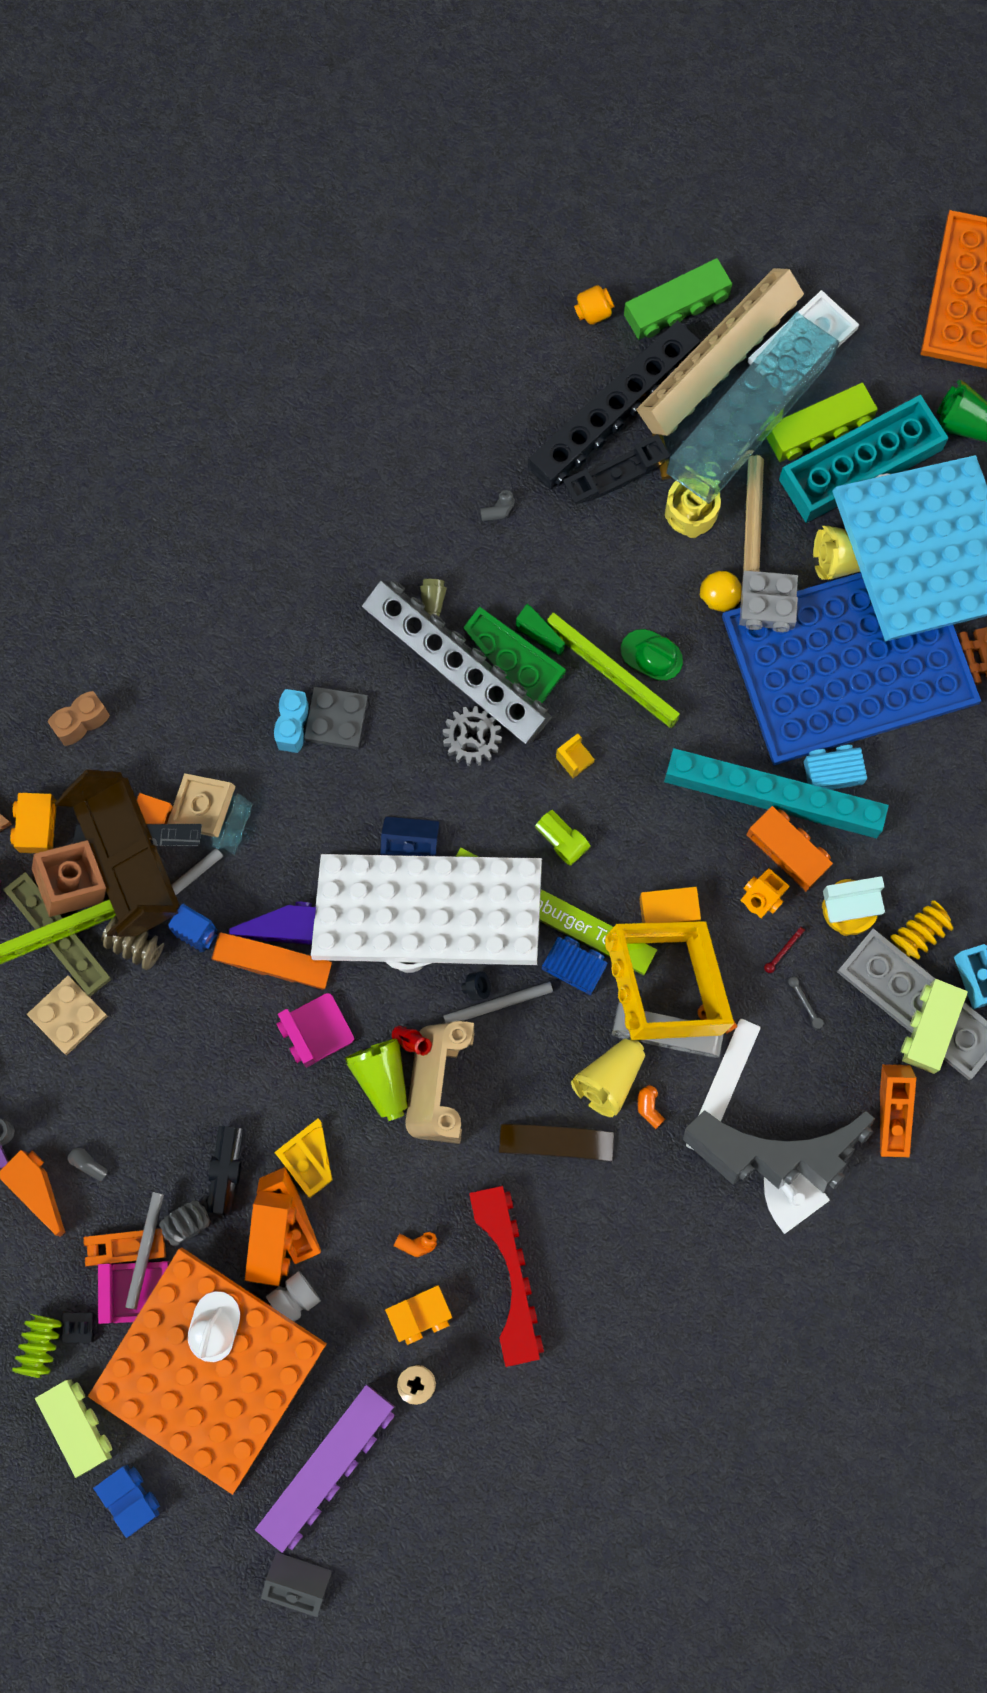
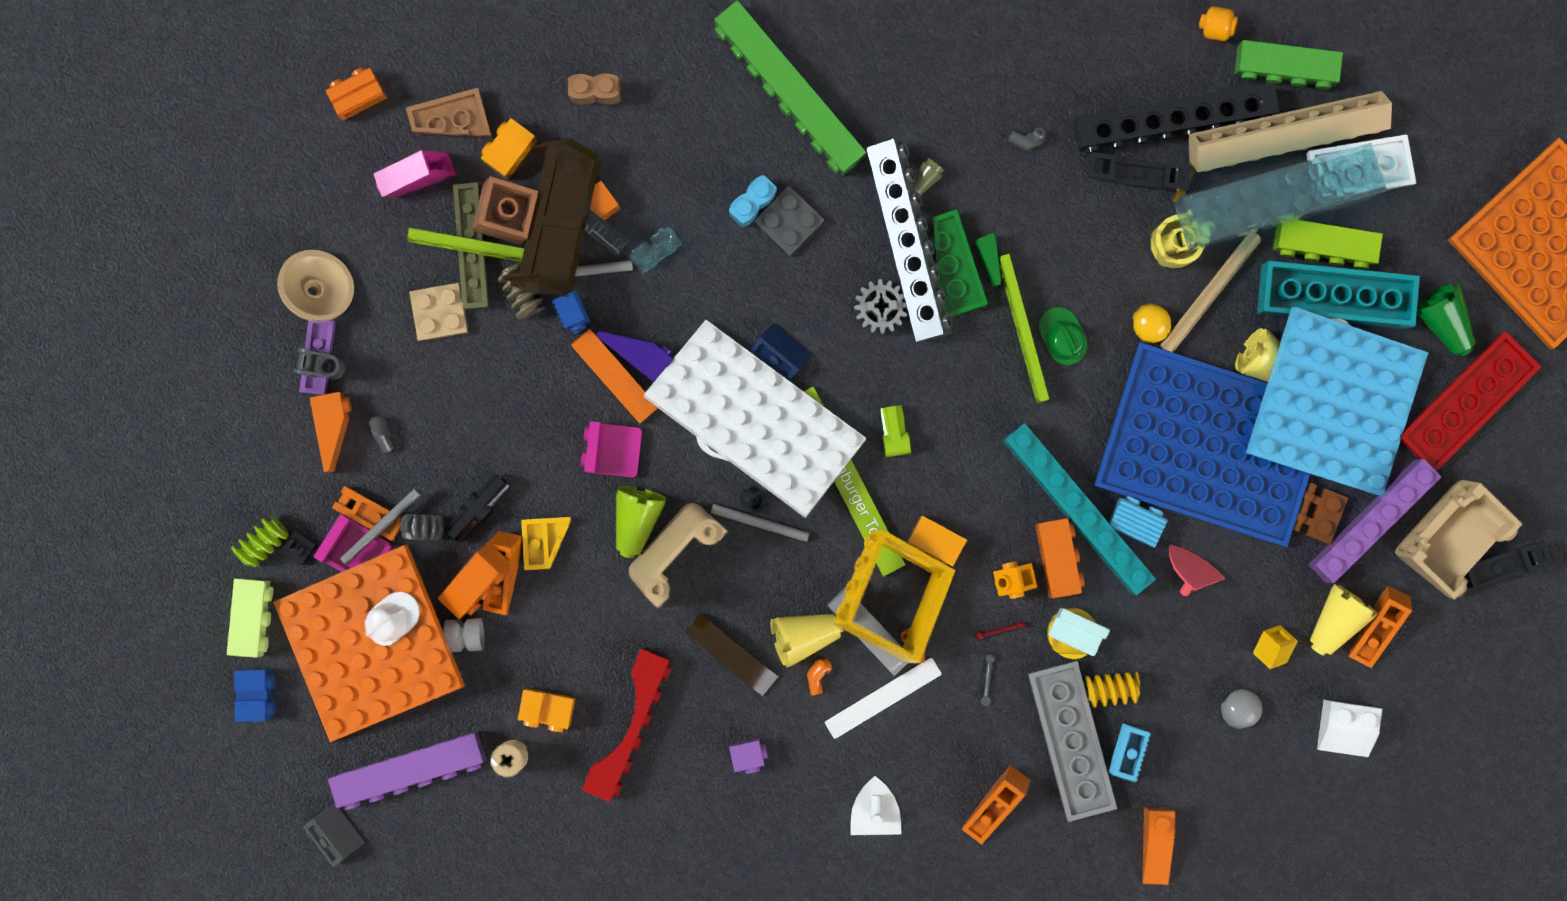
camera: 35 degrees right, 10 degrees up
(202, 802) = (641, 220): tan plate -> none
(256, 602) = (789, 88): none -> bright green brick
(411, 1040) = (675, 508): red pin -> none
(418, 1246) = (579, 659): orange arm -> none
(574, 756) = (947, 376): yellow panel -> none
(575, 965) = (836, 535): blue brick -> none
(638, 1225) = (748, 755): none -> medium lavender brick
(738, 1154) = (910, 801): dark grey arch -> none
(768, 601) = (1181, 358): light grey plate -> none
(914, 778) = (1193, 570): none -> coral shield
(933, 1025) = (1067, 765): yellowish green brick -> none

